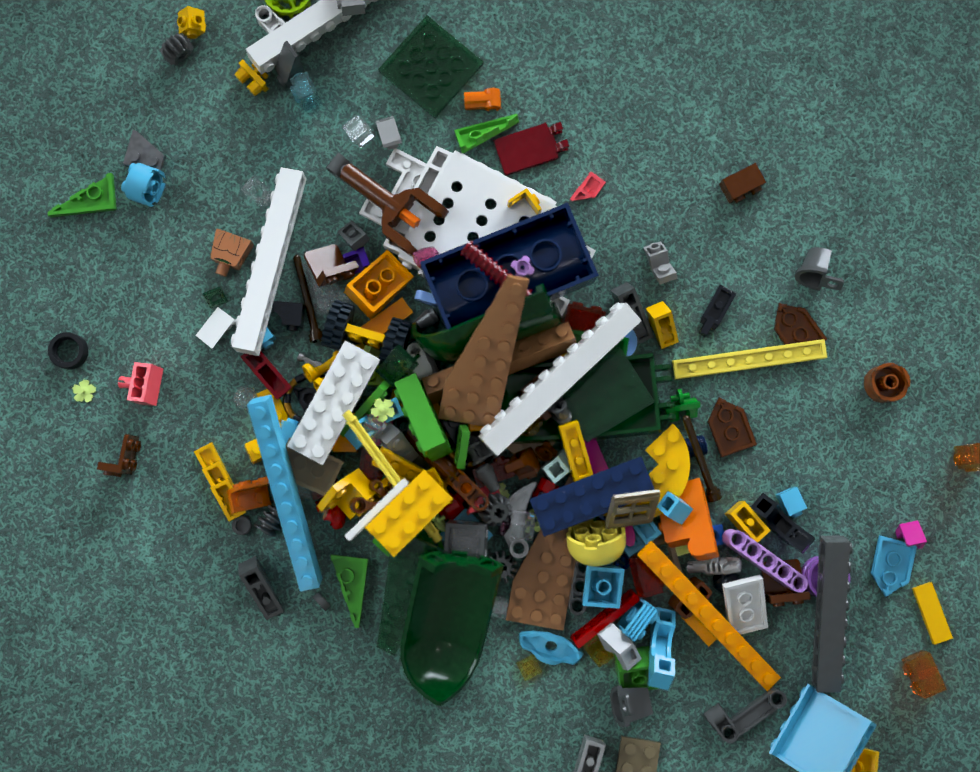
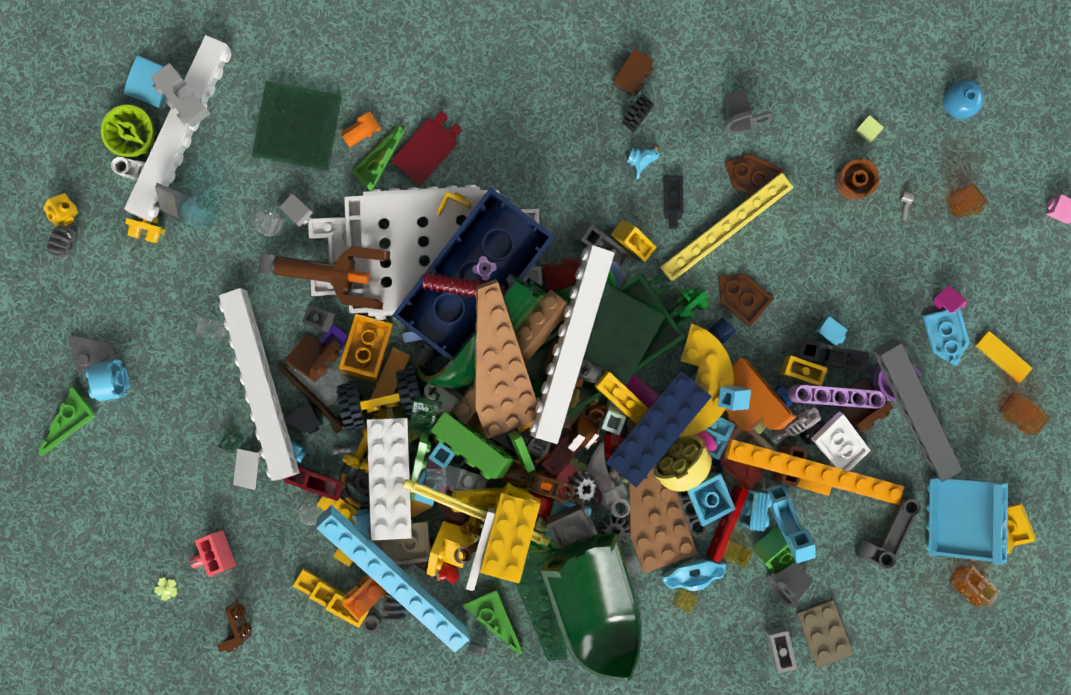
camera: 25 degrees left, 5 degrees up
(57, 340) = (116, 565): black tyre -> none
(229, 251) = (218, 395): nougat torso -> none
(260, 587) = (418, 667): dark grey slope -> none
(383, 409) = (435, 459): yellowish green plant -> none
(423, 254) = (392, 302): clear pink piece -> none
(487, 476) = (558, 463): dark grey cone -> none
(589, 188) = (500, 155): coral slope -> none
(618, 643) = (750, 540): light grey slope -> none
(628, 498) = (714, 411): dark tan piece -> none
(659, 262) = (600, 186): light grey slope -> none
(709, 259) = (642, 158): none -> medium azure animal
(712, 492) = (759, 362): dark brown piece -> none
(727, 218) = (637, 113): none -> black tyre
(921, 346) = (869, 129): none -> yellowish green tile
(922, 425) = (907, 198): none -> light grey hand

